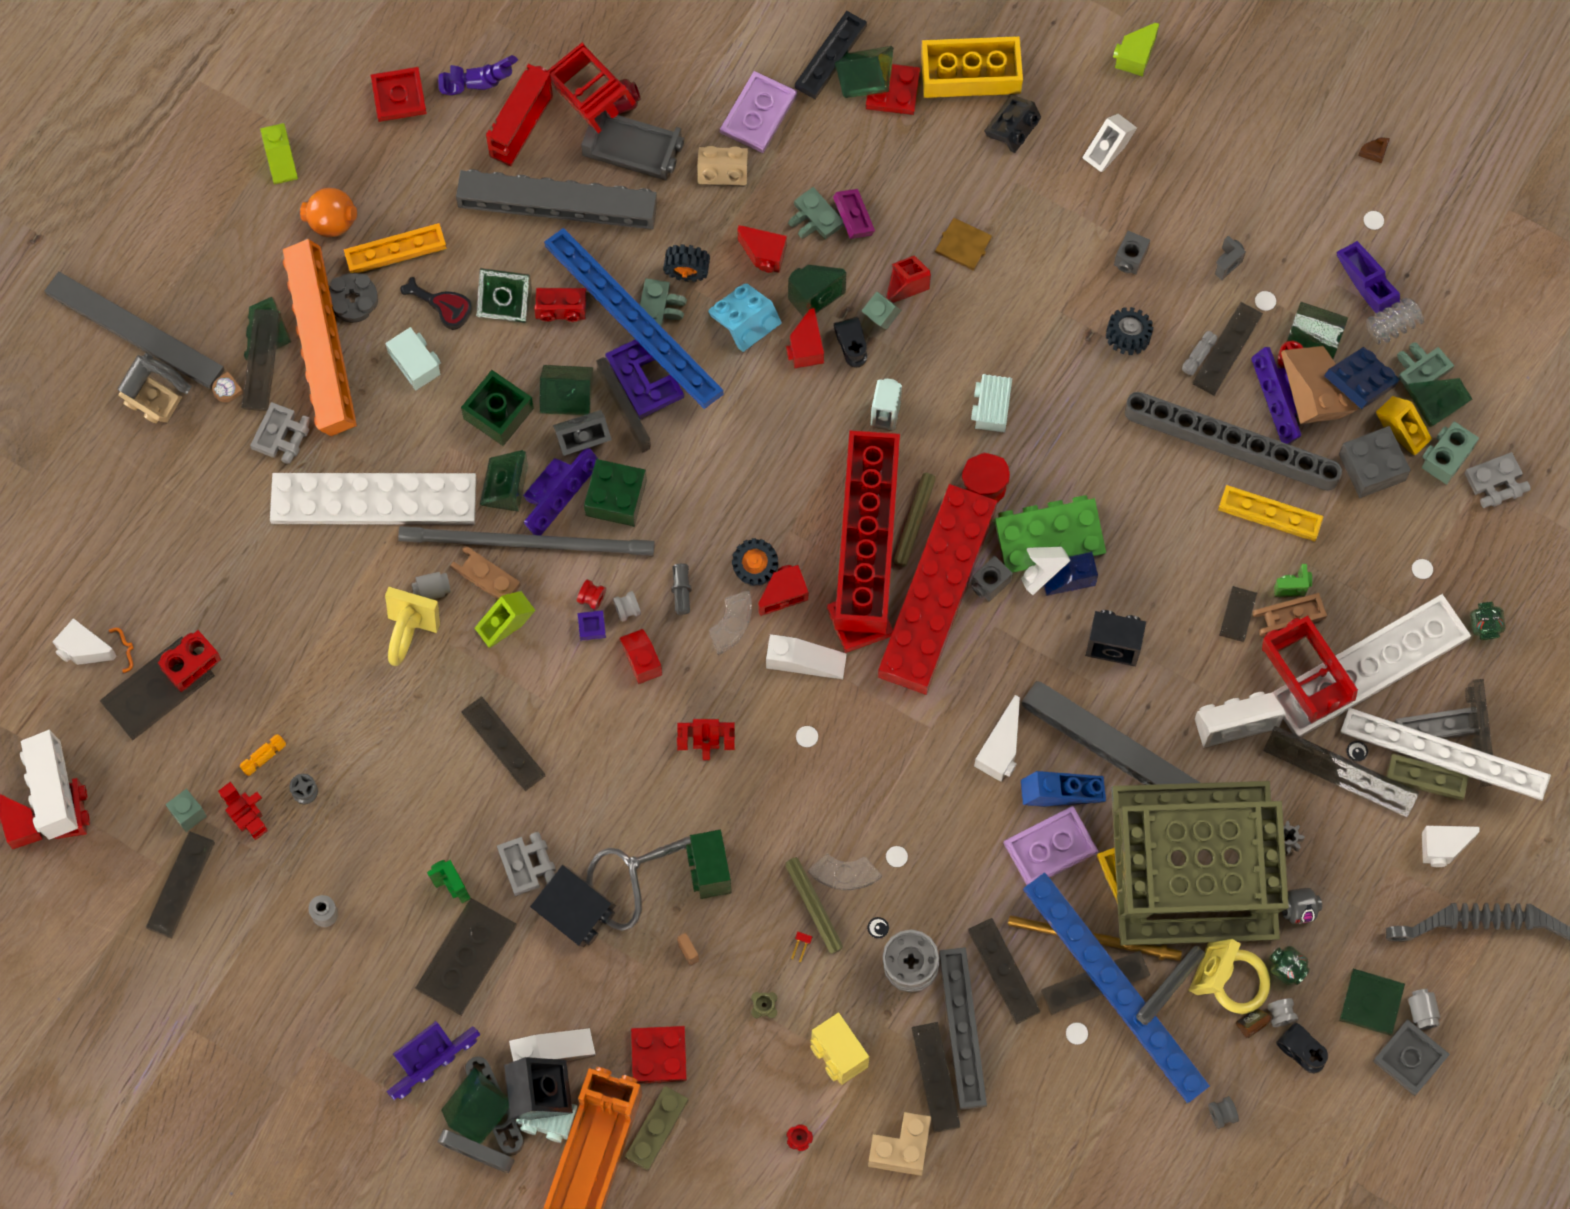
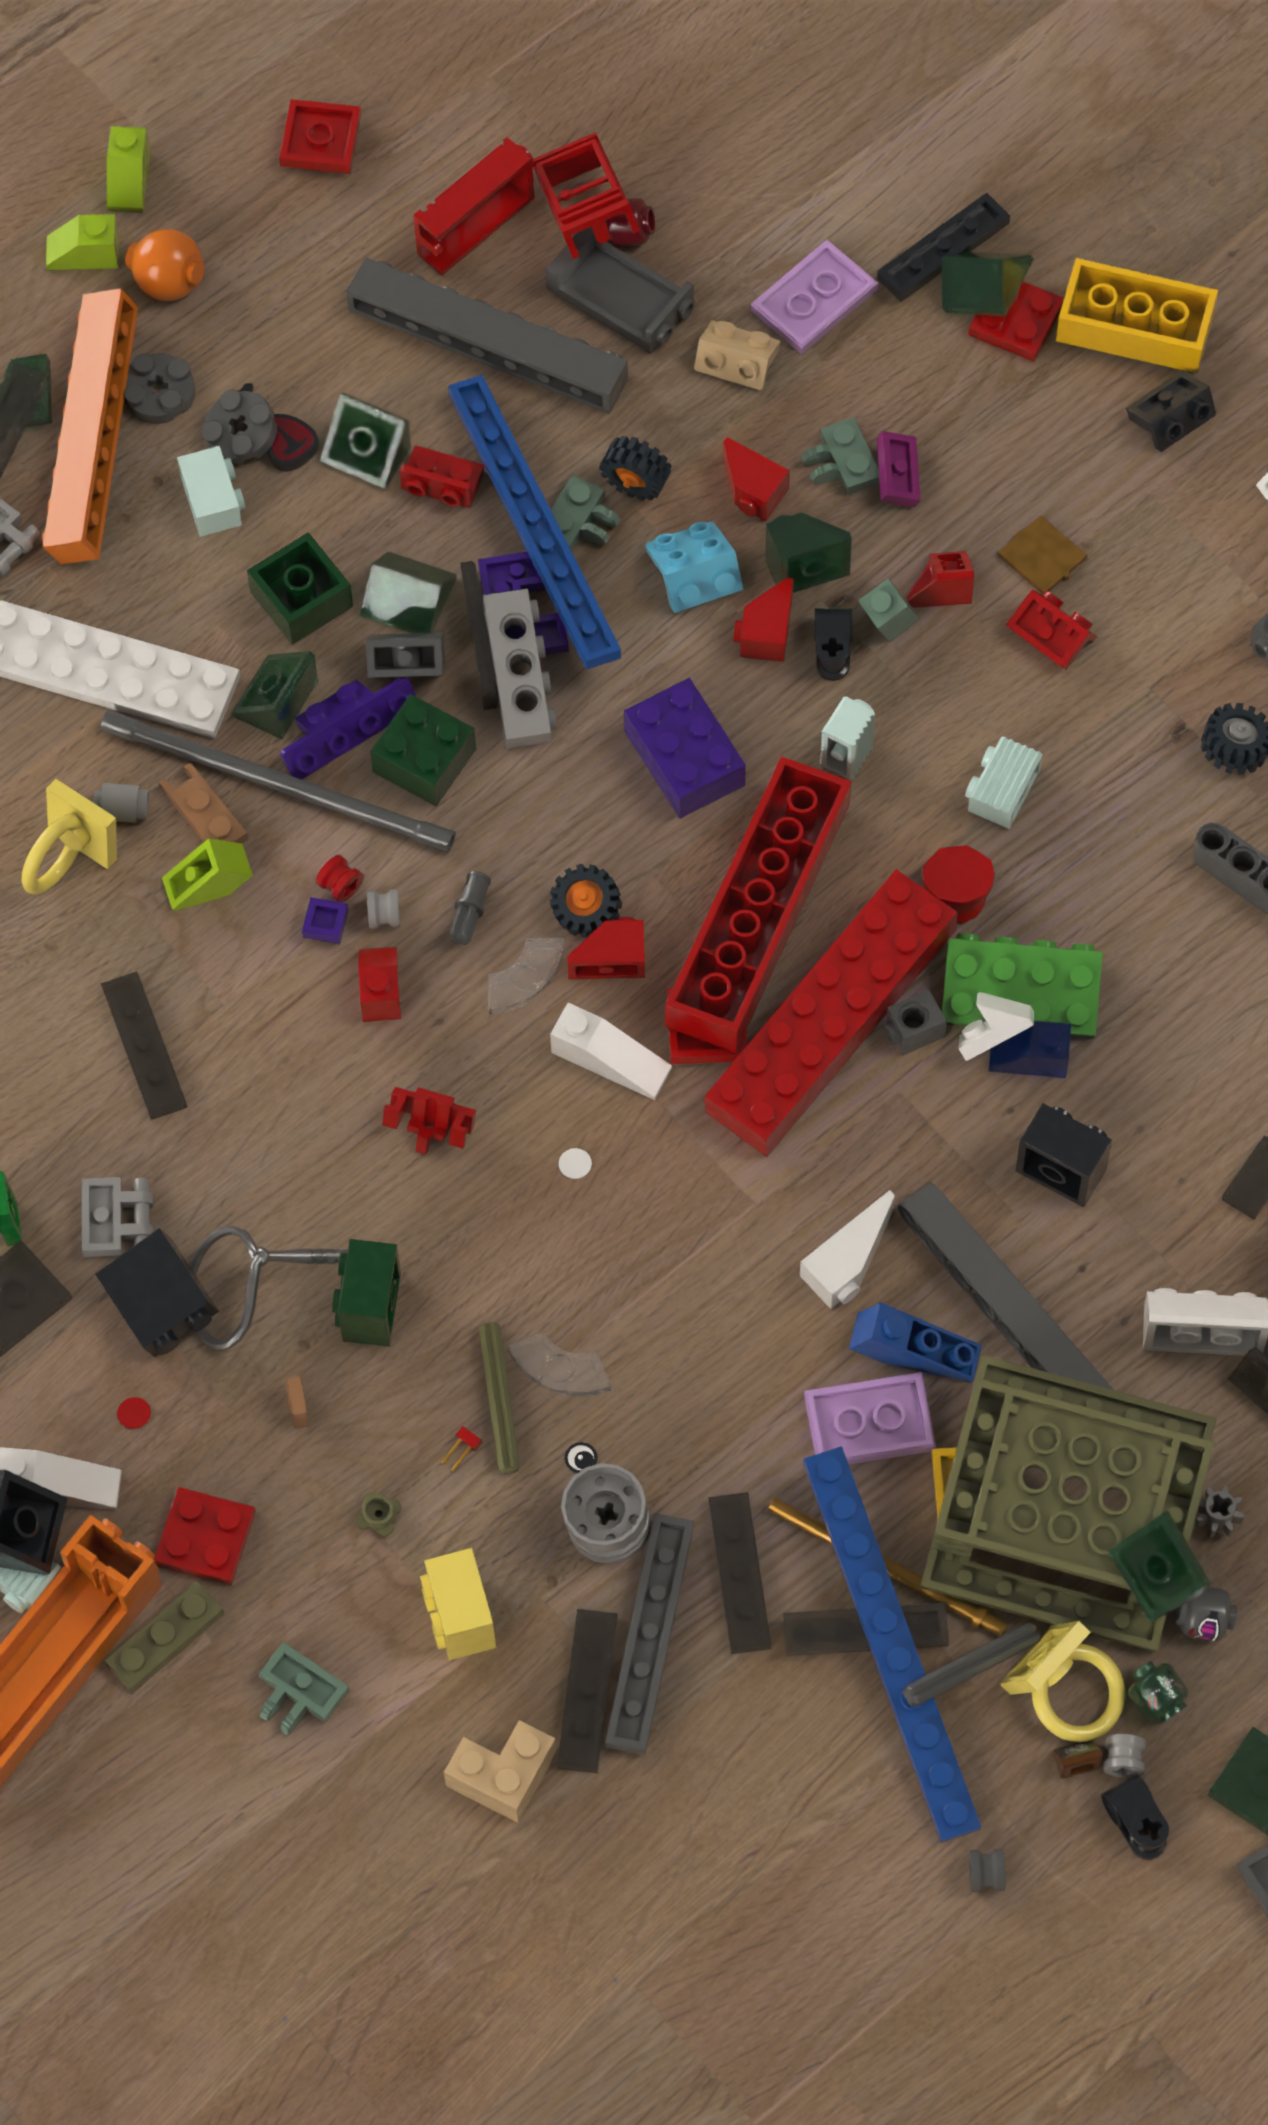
camera: 20 degrees right, 5 degrees down
(268, 213) = (84, 244): none -> lime slope
(395, 248) = (239, 339): light orange plate -> none
(408, 298) = (230, 410): none -> dark grey plate
(475, 78) = (436, 144): dark purple piece -> none
(583, 988) = (134, 1413): none -> red sticker
(669, 458) = (519, 726): none -> light grey brick
(755, 1130) = (302, 1682): none -> sand green hinge
(782, 441) = (684, 748): none -> dark purple brick
(799, 1130) = (357, 1703): red plate -> none
(896, 856) = (643, 1367): white sticker -> none
(914, 519) = (835, 910): olive axle -> none
(987, 292) = (1050, 628): none -> red bracket
(1077, 1033) = (814, 1694): white sticker -> none
(1276, 891) = (1160, 1567): none -> clear green slope

